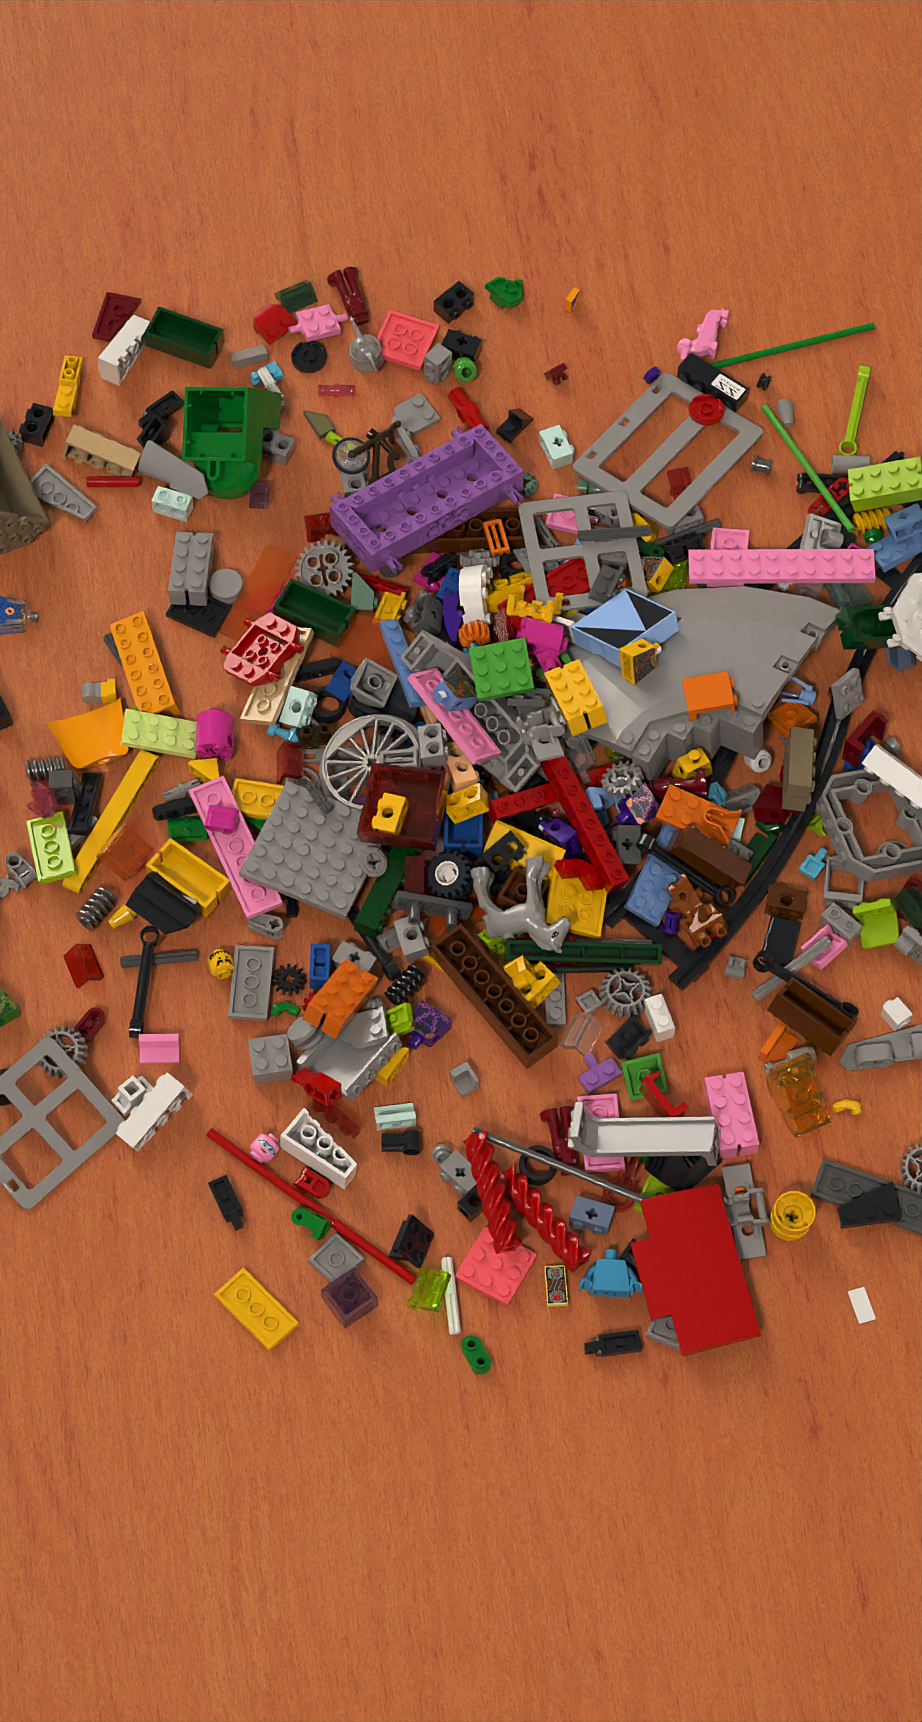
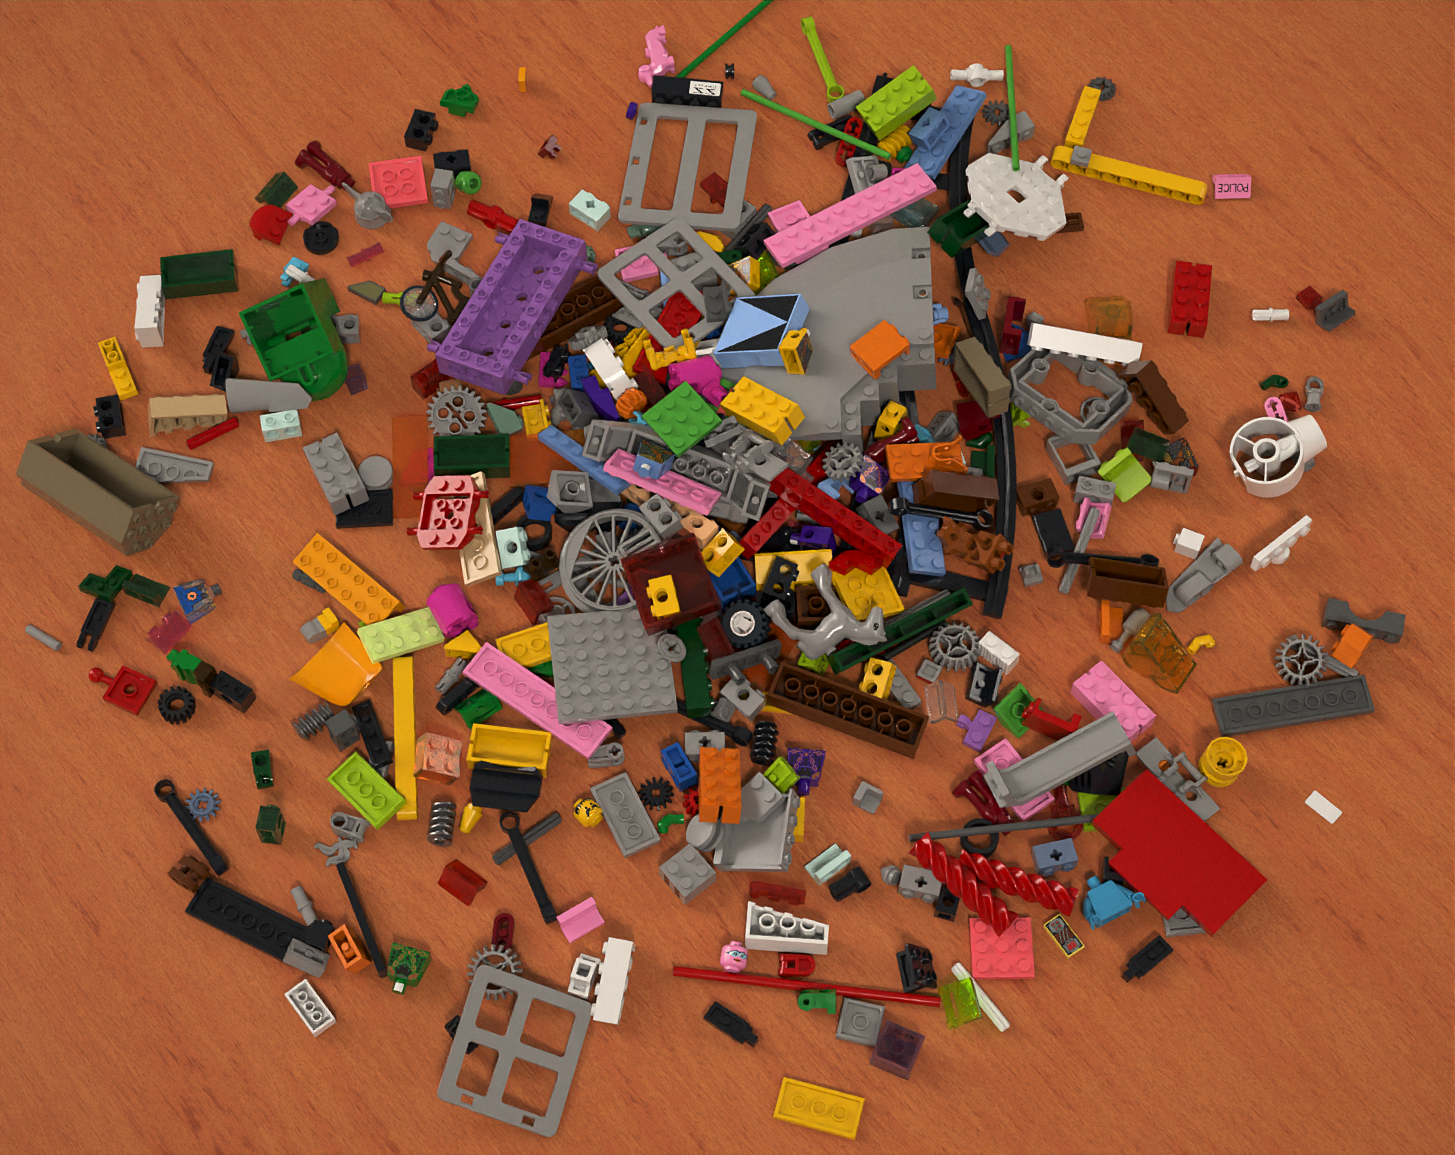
camera: 30 degrees left, 0 degrees up
(44, 801) = (333, 752): clear pink bracket -> none
(113, 315) = (119, 286): dark red wing -> none
(221, 819) = (510, 681): dark pink piece -> none
(248, 356) = (266, 263): light grey slope -> none
(318, 1086) = (748, 874): red piece -> none
(319, 797) = (587, 616): dark grey axle -> none
(375, 1003) = (747, 774): light grey plate -> none
(475, 1354) = (1035, 1038): green plate -> none
(499, 550) = (608, 316): orange tile -> none
(520, 971) = (860, 676): yellow panel -> none
(613, 533) = (694, 256): dark grey axle -> none
(668, 927) = (954, 565): dark purple bush -> none
(706, 409) = (697, 117): red tile -> none
(761, 465) = (773, 141): dark grey bush -> none
(761, 763) = (939, 393): white head -> none
(814, 865) = (1038, 454): medium azure plate -> none
(871, 1209) = (1281, 719): black wing -> none

